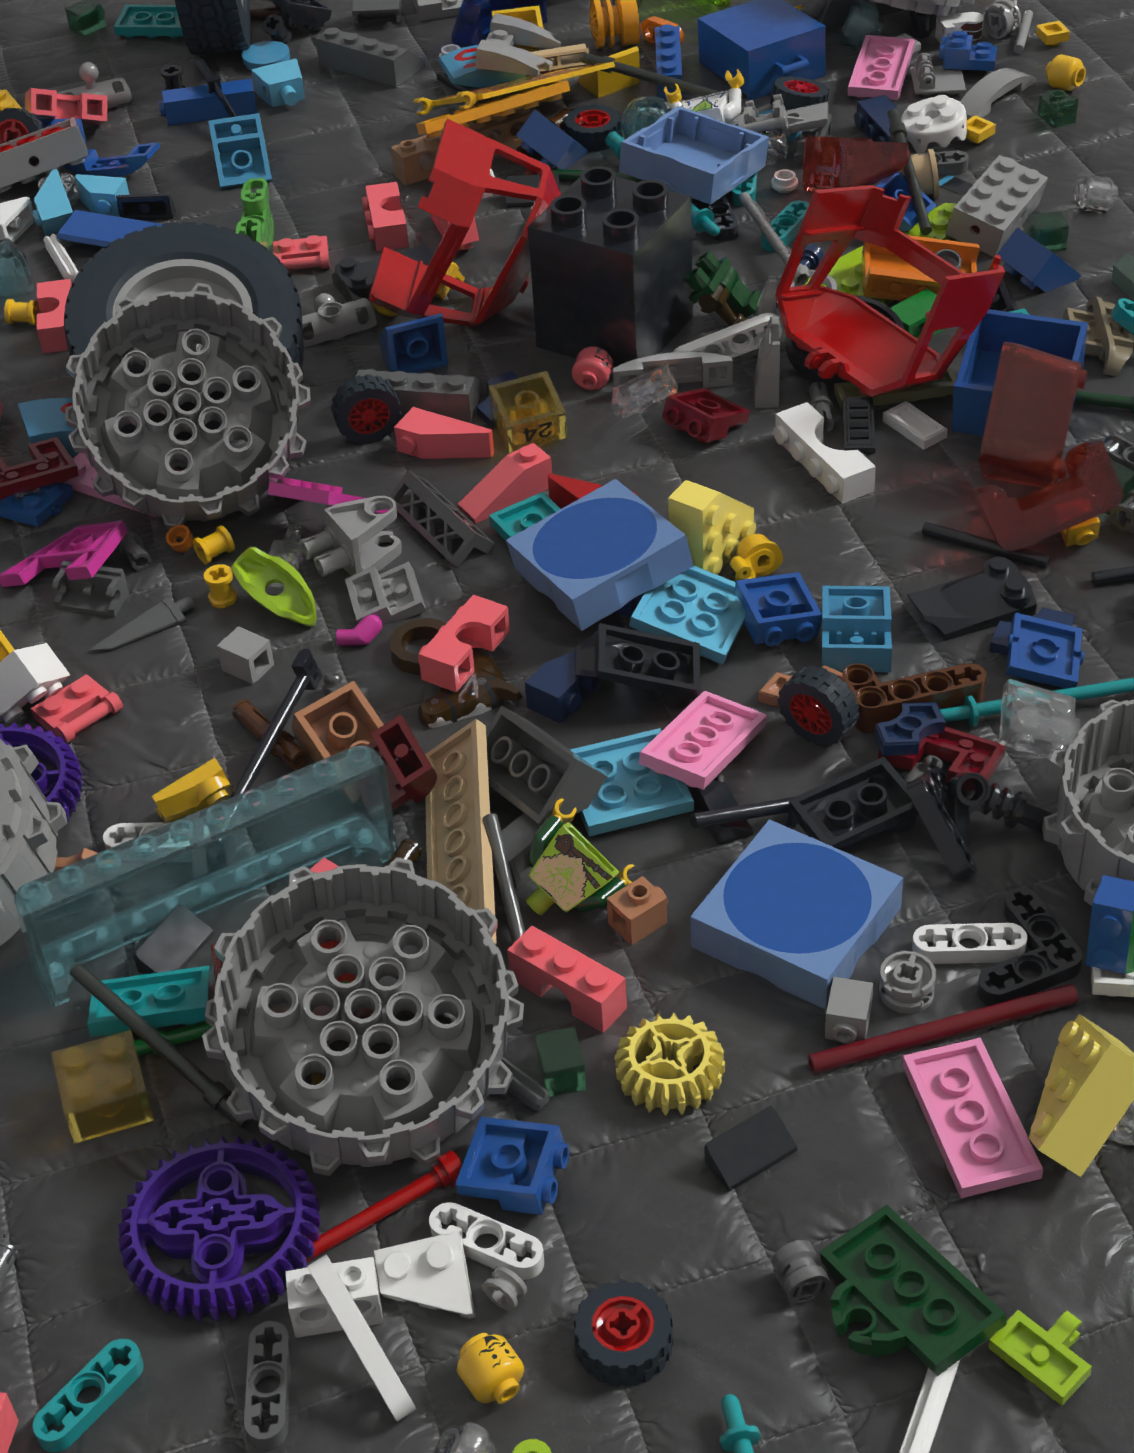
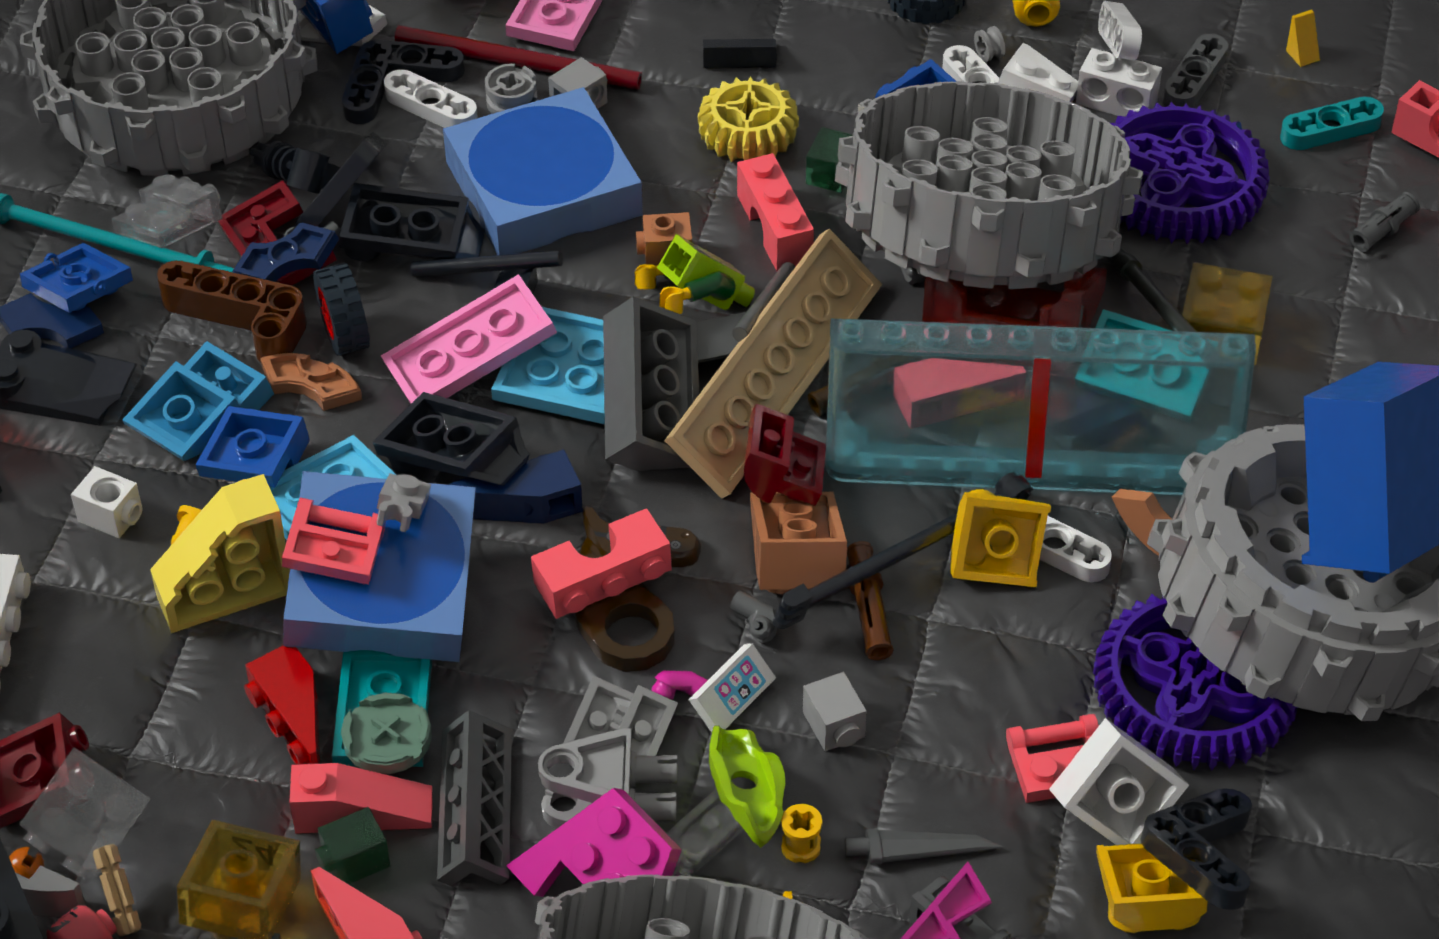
camera: 150 degrees left, 5 degrees up
(326, 634) = (732, 688): none -> tile
(482, 460) = (353, 847): none -> clear green brick
(516, 508) = (386, 733): none -> sand green tile
(595, 387) = (117, 889): none -> tan axle
(600, 548) = (401, 499): none -> light grey plate
(618, 503) = (330, 550): none -> coral plate
(838, 545) = (107, 502): none -> white brick

